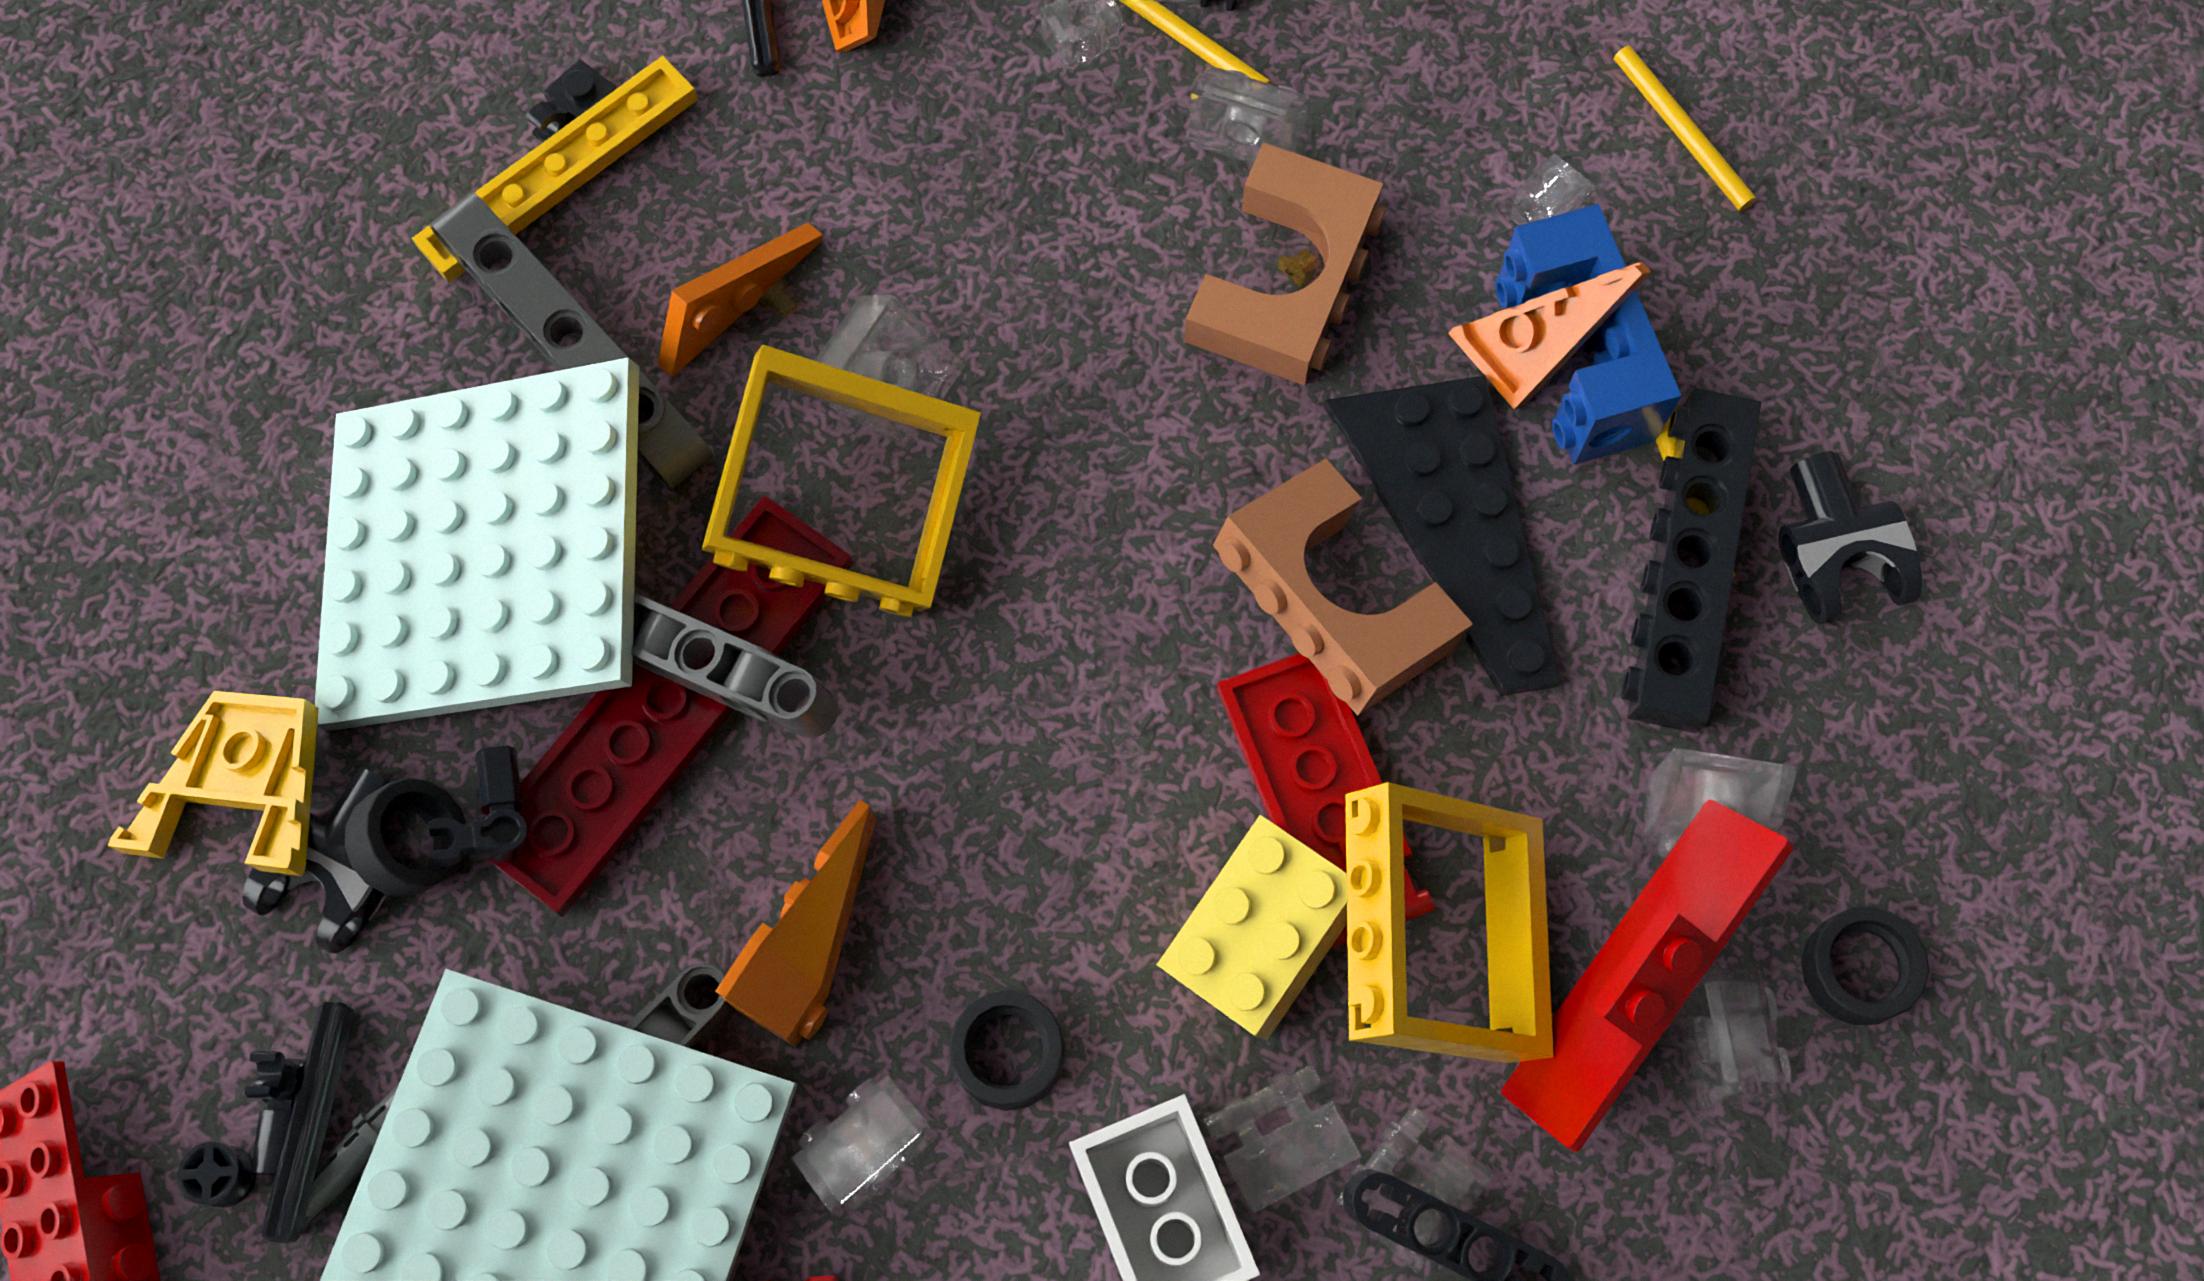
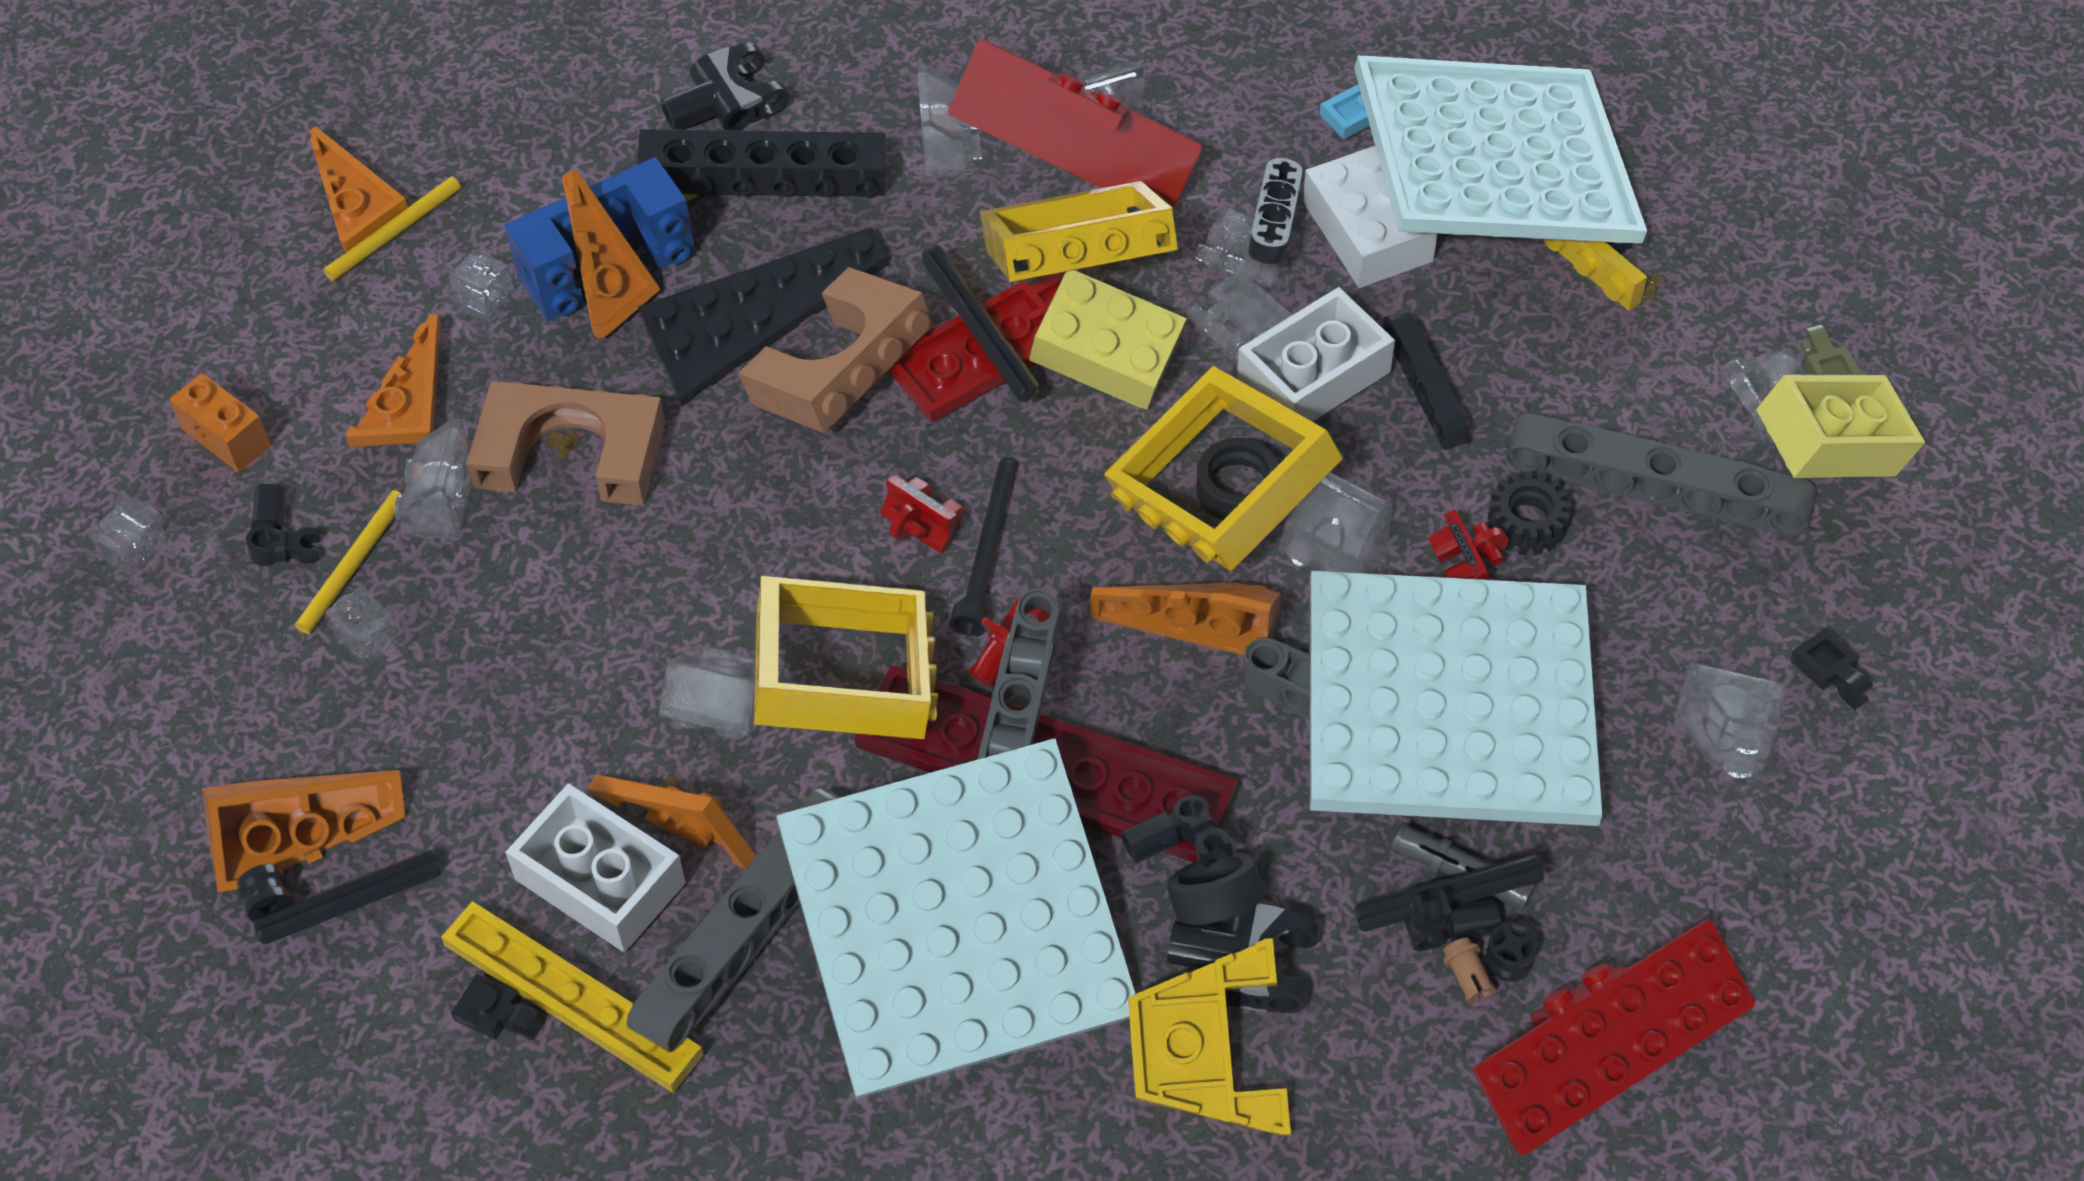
camera: 105 degrees left, 15 degrees down
(216, 1115) = (1467, 967): none -> nougat pin
(683, 202) = (596, 867): none -> white brick
(855, 700) = (988, 663): none -> red bracket
(904, 666) = (971, 609): none -> black piece
(1008, 1097) = (1263, 508): none -> yellow window
(1089, 625) = (917, 514): none -> red hips
(1340, 770) = (980, 323): none -> black axle
(1401, 108) = (407, 397): none -> orange wing
(1742, 90) = (355, 194): none -> orange wing
(1894, 932) = (1034, 27): black tyre -> none

